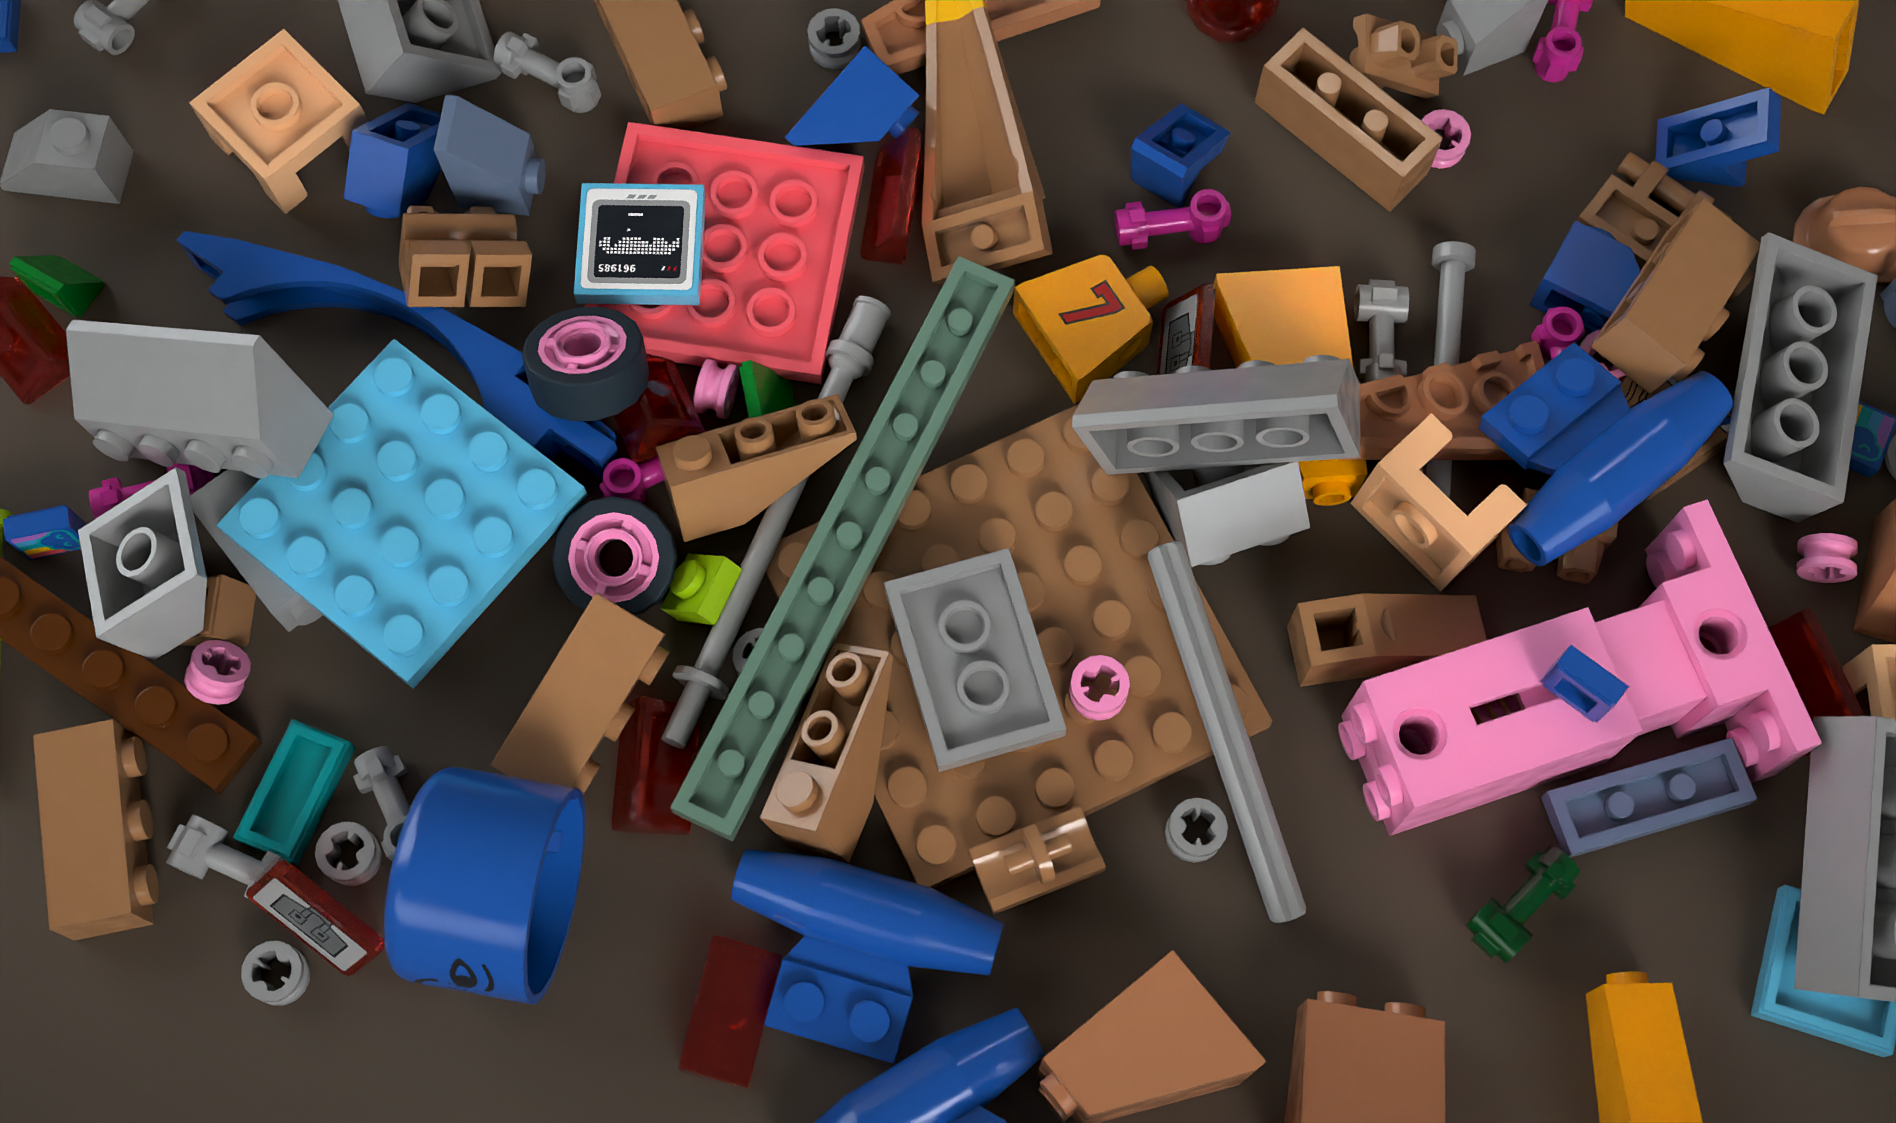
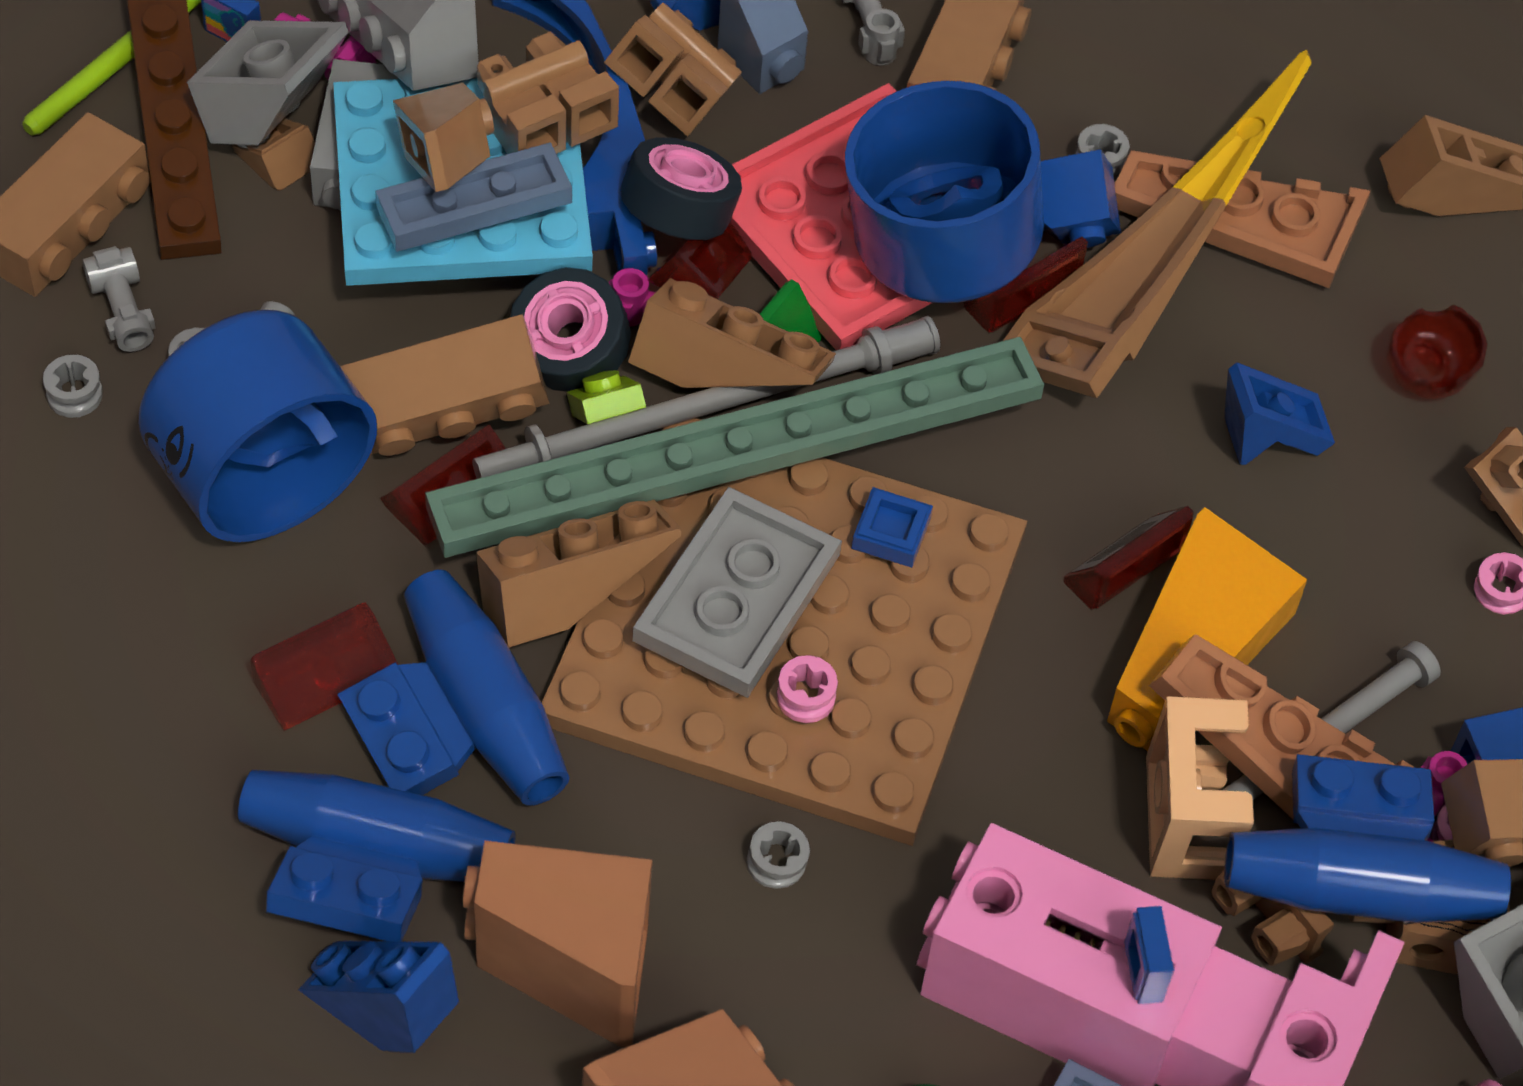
camera: 40 degrees right, 15 degrees down
(202, 675) = (240, 181): bright pink bush -> none
(294, 792) = (206, 294): teal tile -> none
(315, 917) = (130, 359): slope -> none
(379, 500) = (444, 133): none -> medium nougat slope
(421, 390) = (548, 97): none -> medium nougat hips
(452, 529) = (486, 196): none -> sand blue plate
(640, 244) = (797, 157): tile -> none
(716, 388) = (756, 286): bright pink bush -> none
(768, 137) = (945, 191): none -> blue piece
(1019, 497) = (892, 527): none -> blue tile
(1036, 860) = (637, 758): medium nougat hips -> none
(1088, 319) = (1081, 469): light orange torso -> none
(1201, 220) = (1248, 472): dark pink bar -> none
(1222, 416) = (1086, 578): light grey slope -> none
(1226, 732) = (865, 800): light grey axle -> none
(1230, 507) = (1050, 660): light grey slope -> none
(1347, 119) = (1430, 498): medium nougat brick -> none
(1378, 633) = (1050, 814): medium nougat slope -> none
(1381, 306) = (1317, 645): light grey bar -> none

